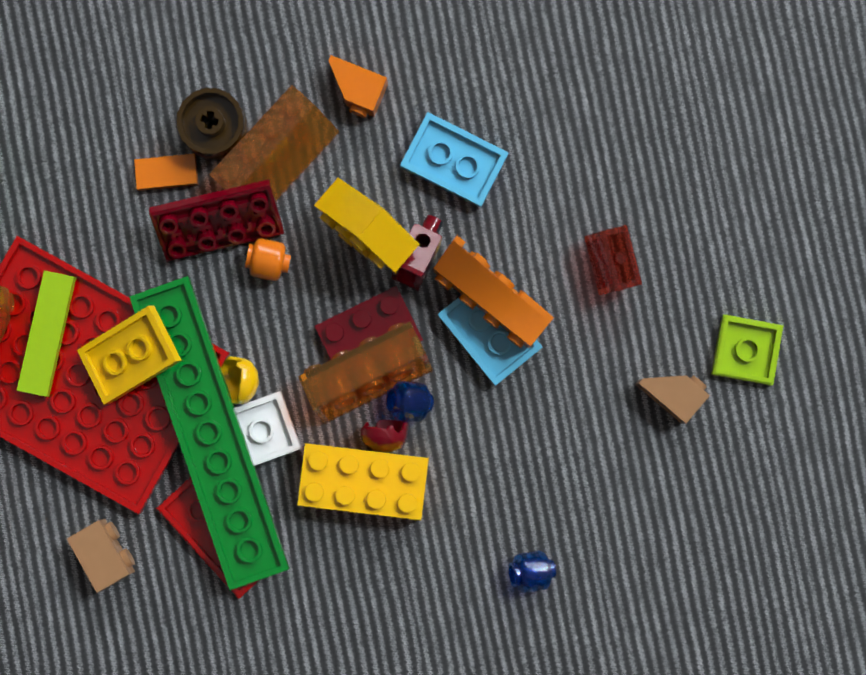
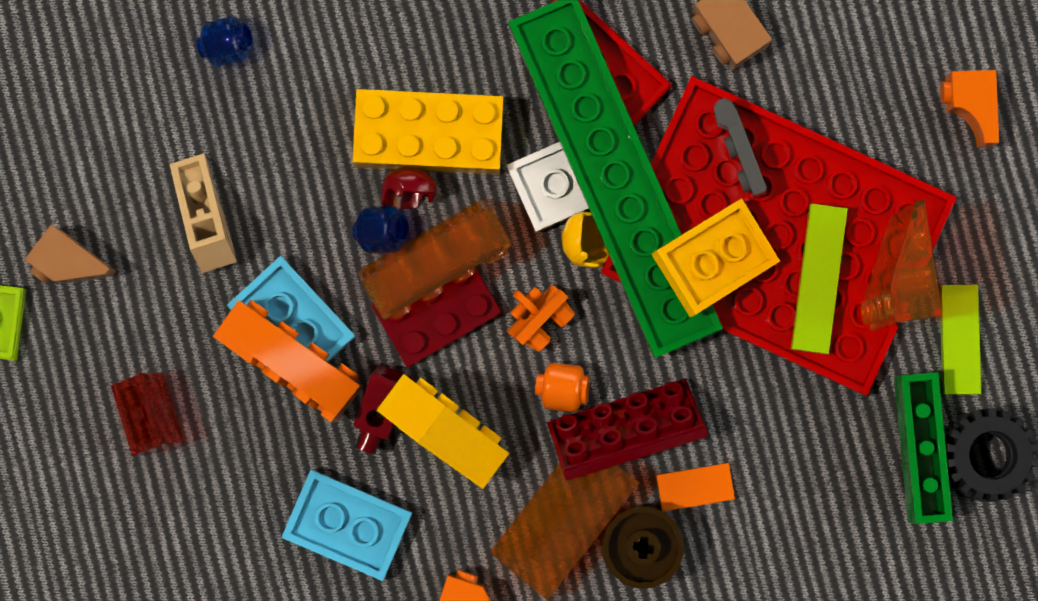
camera: 170 degrees right, 0 degrees up
(101, 448) = (739, 146): none -> dark grey hinge
(285, 323) = (534, 311): none -> orange hips
(559, 426) = (202, 214): none -> tan slope

